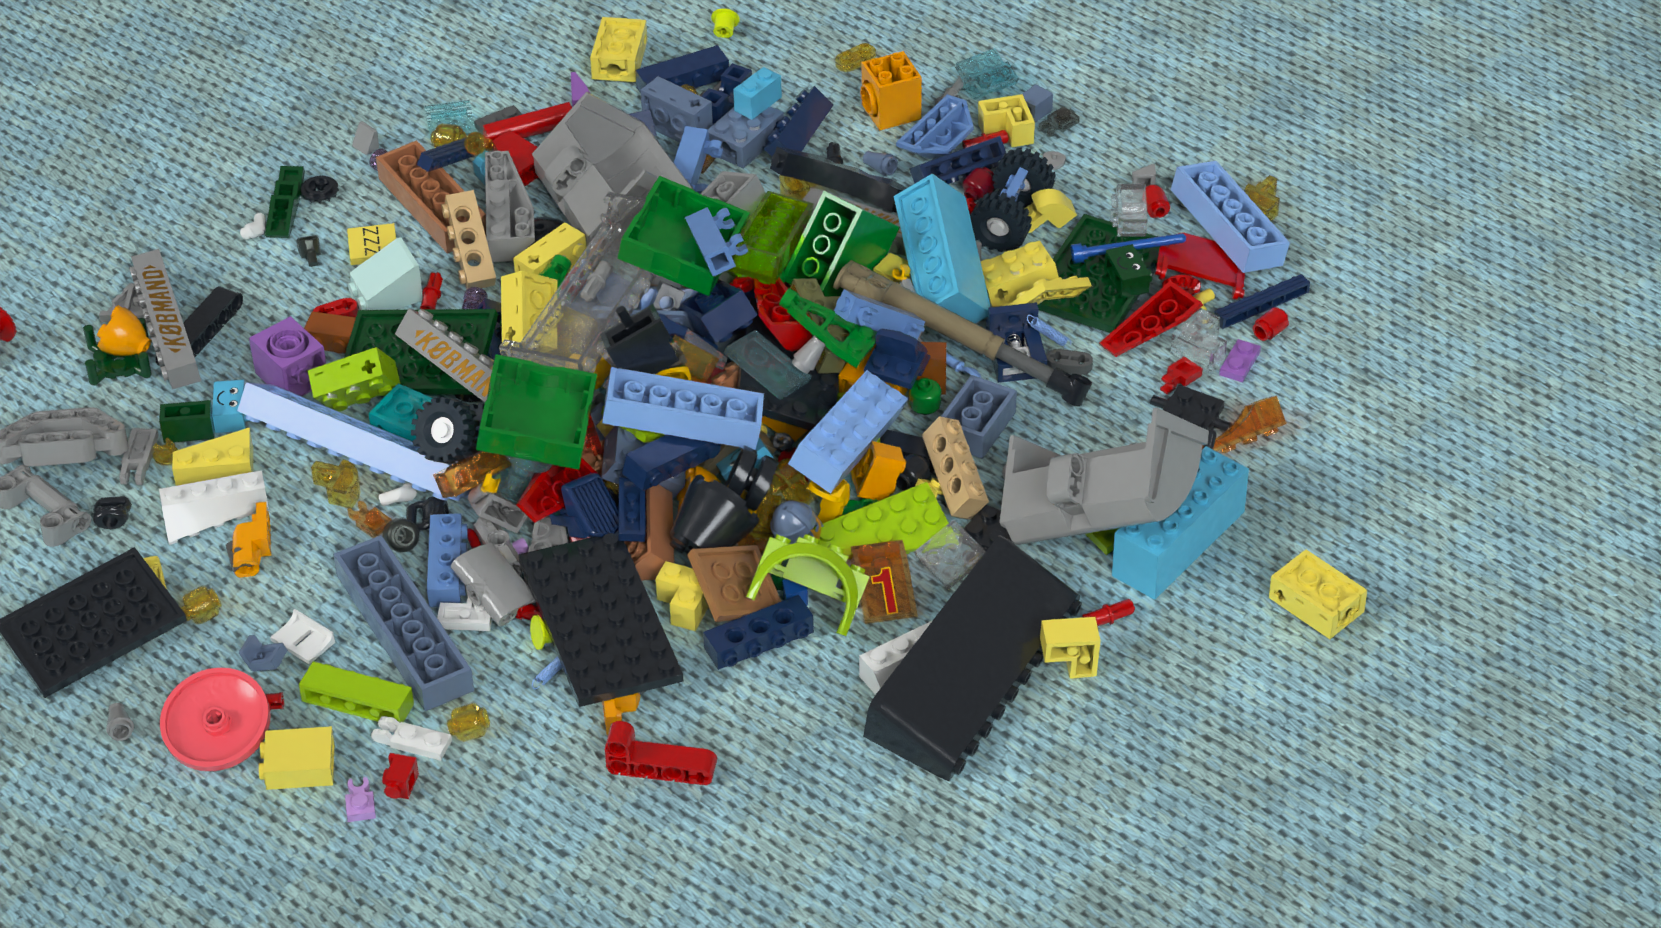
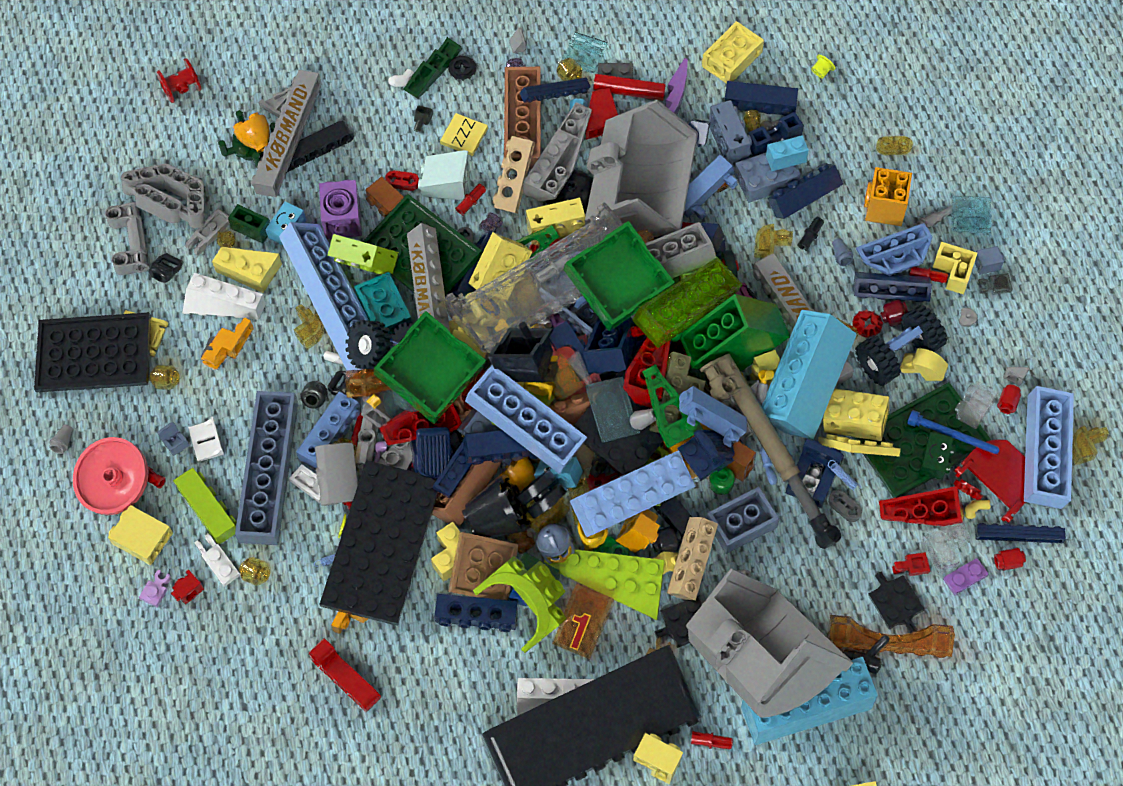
camera: 35 degrees right, 20 degrees up
(371, 521) = (309, 369): clear orange plate -> none
(477, 143) = (578, 91): clear yellow cone -> none
(710, 241) = (626, 295): medium blue brick -> none
(836, 176) = (783, 242): black arch -> none
(950, 554) = (641, 627): clear plate -> none

